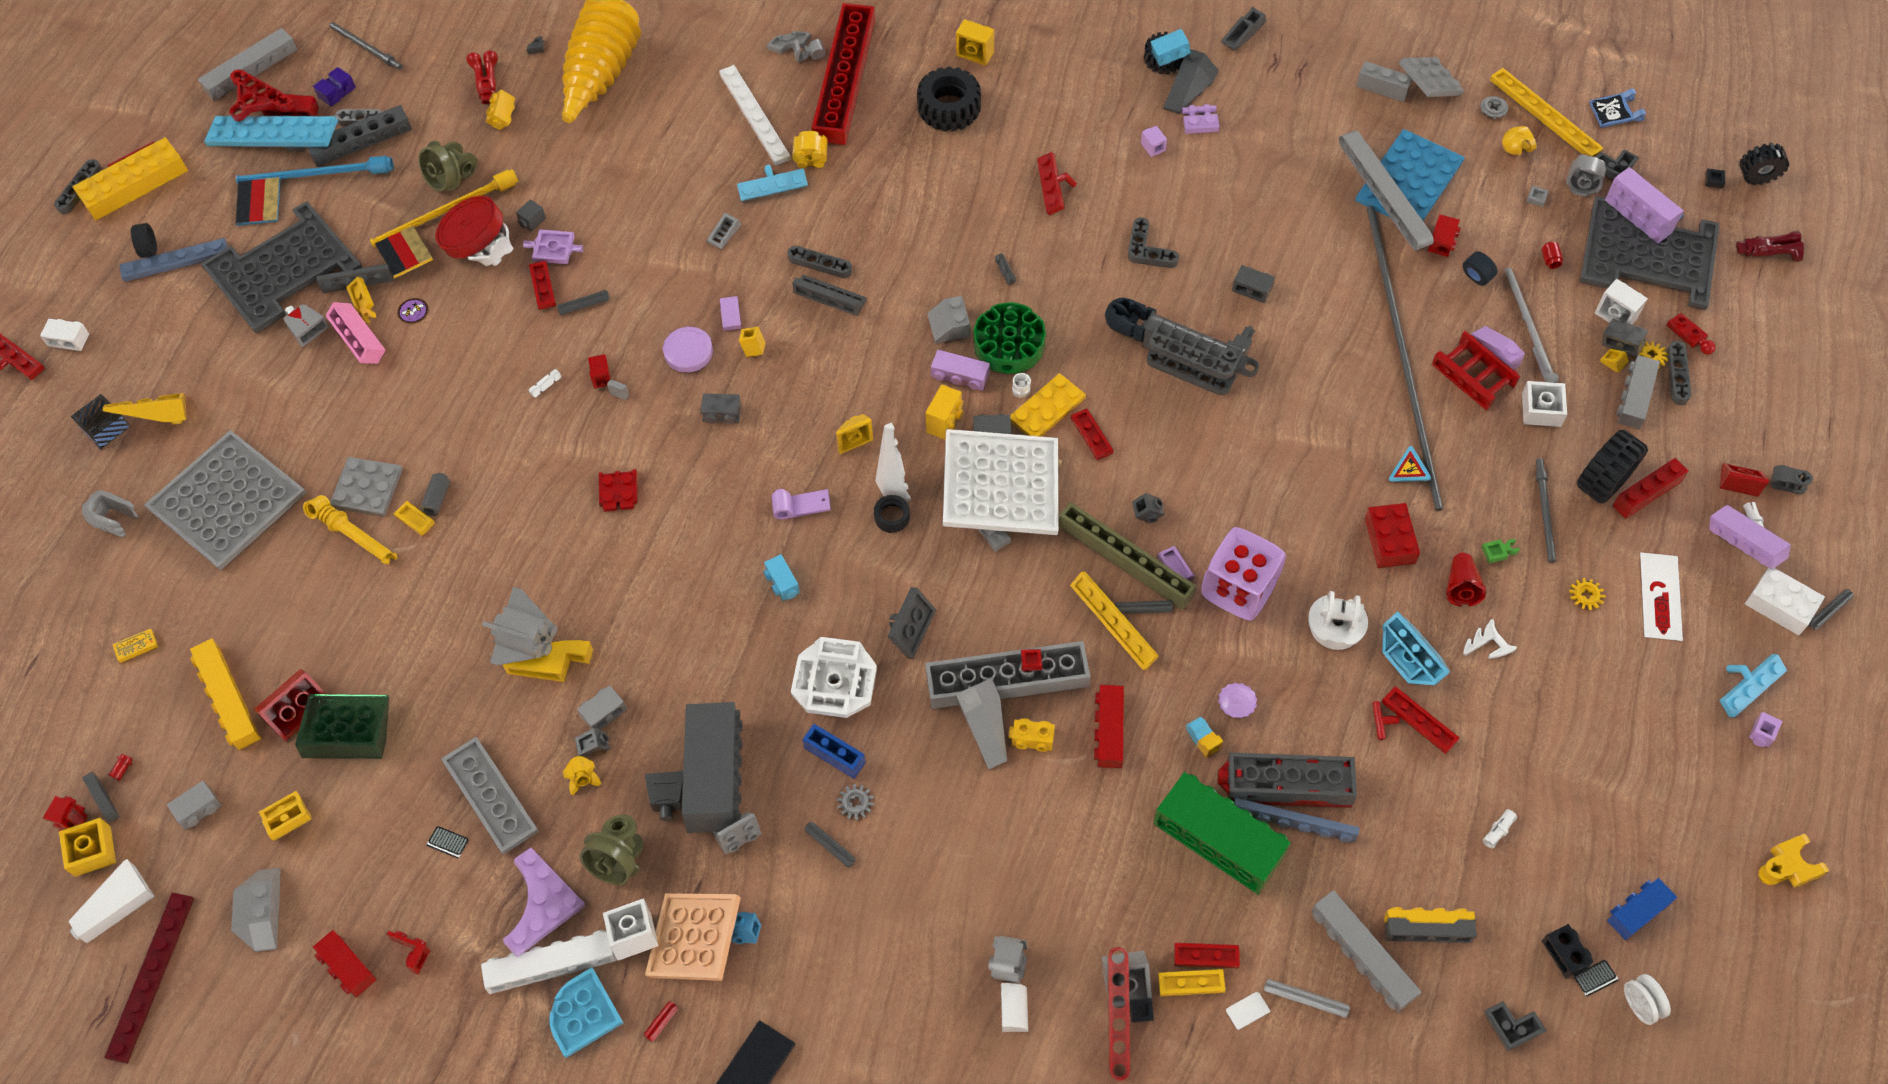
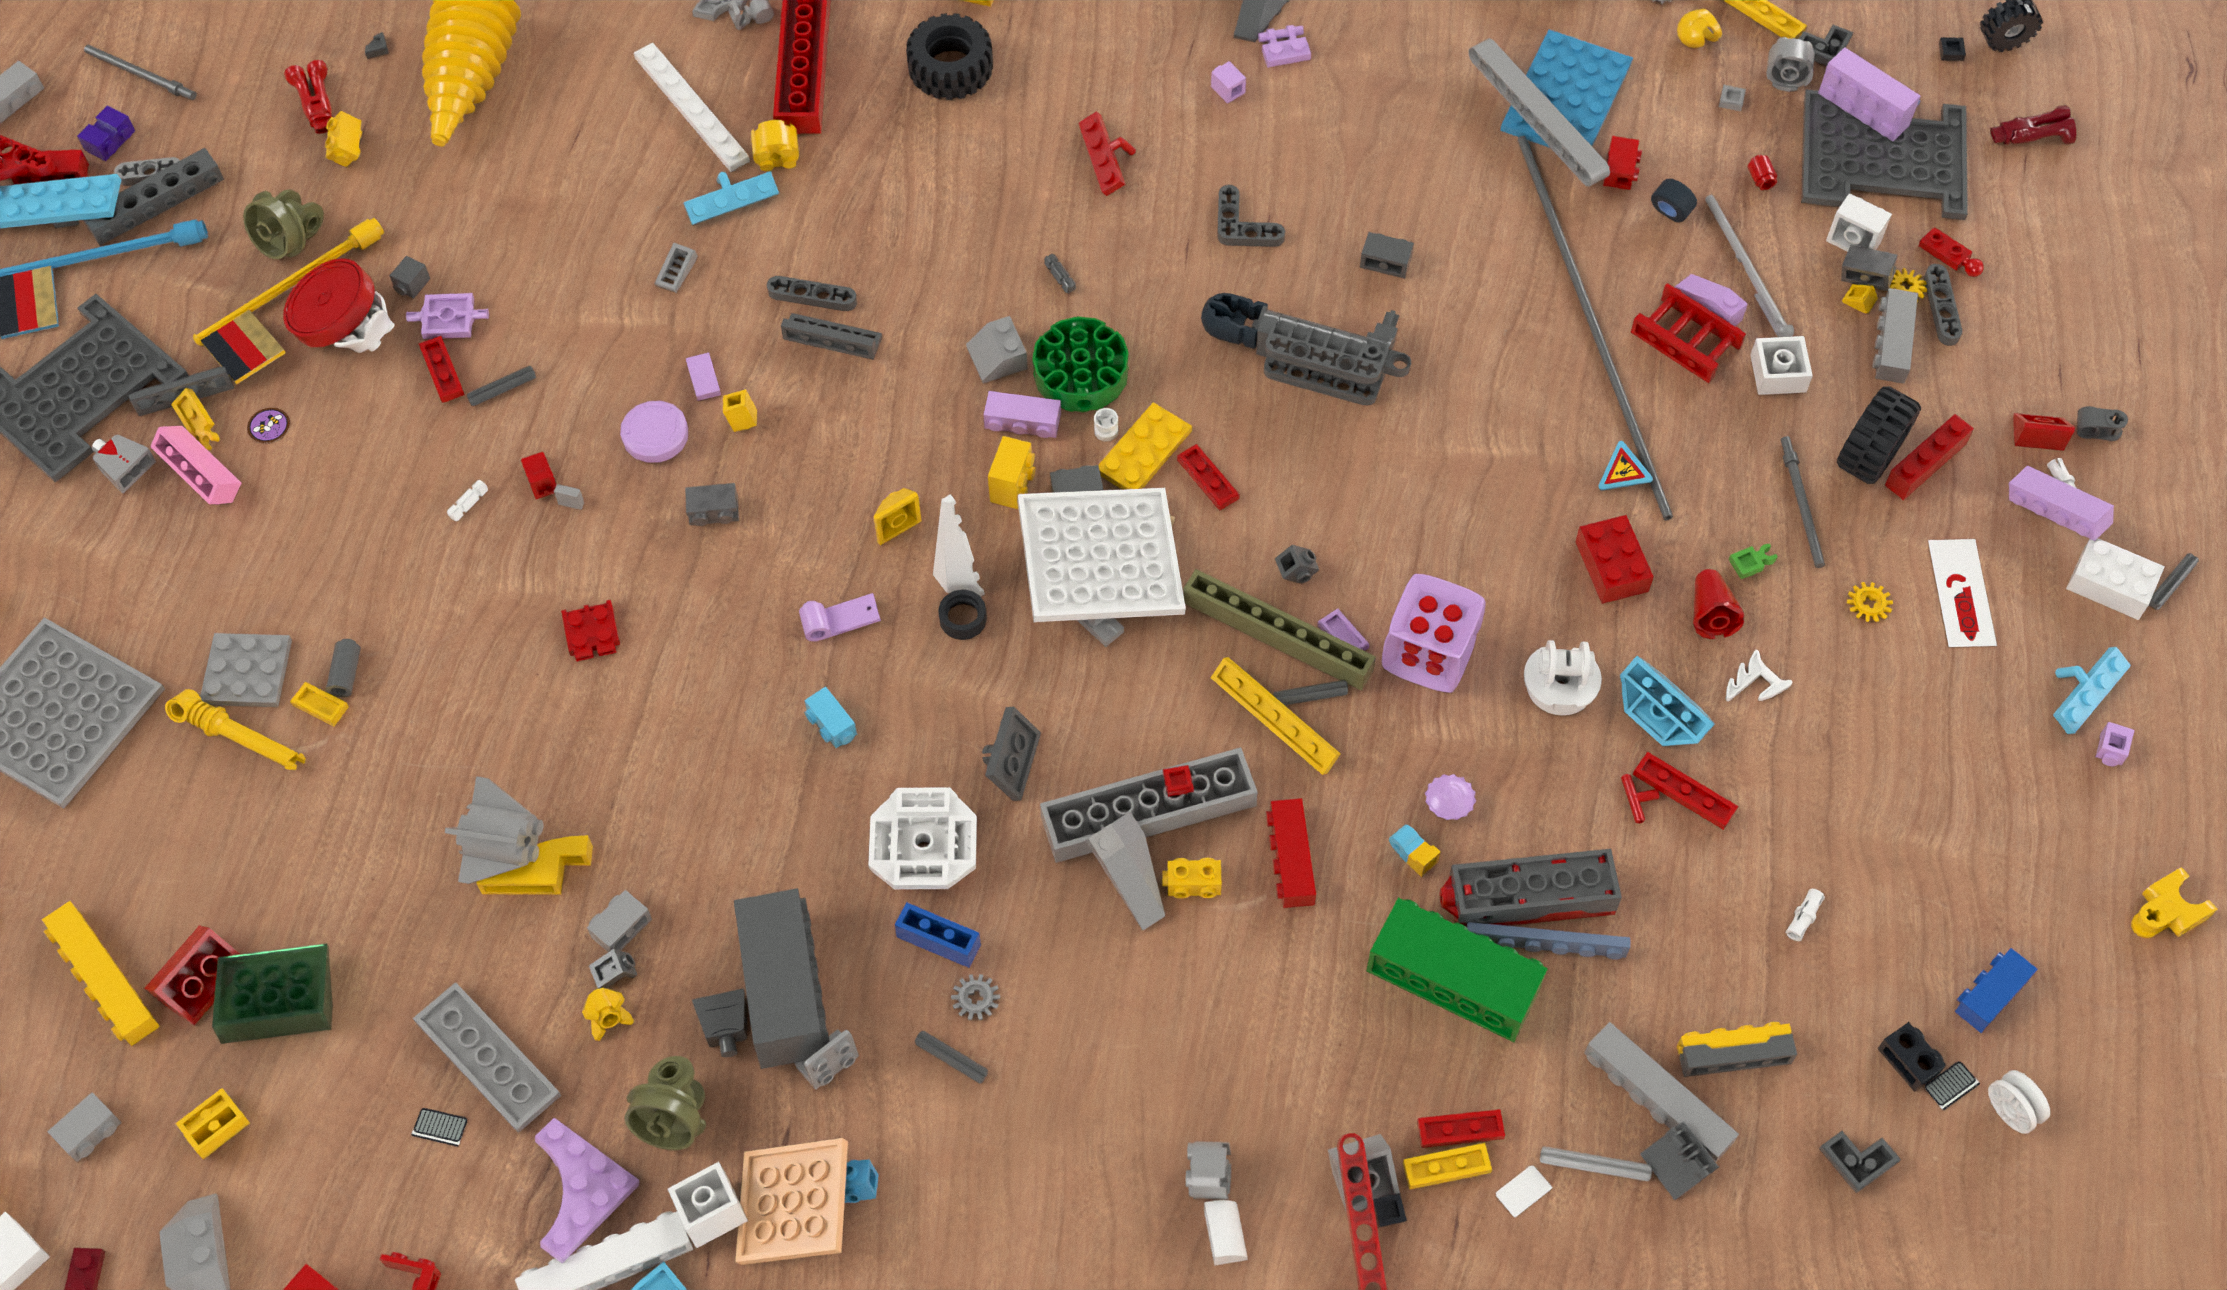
camera: 10 degrees left, 0 degrees up
(1372, 1005) = (1679, 1160): none -> dark grey hinge

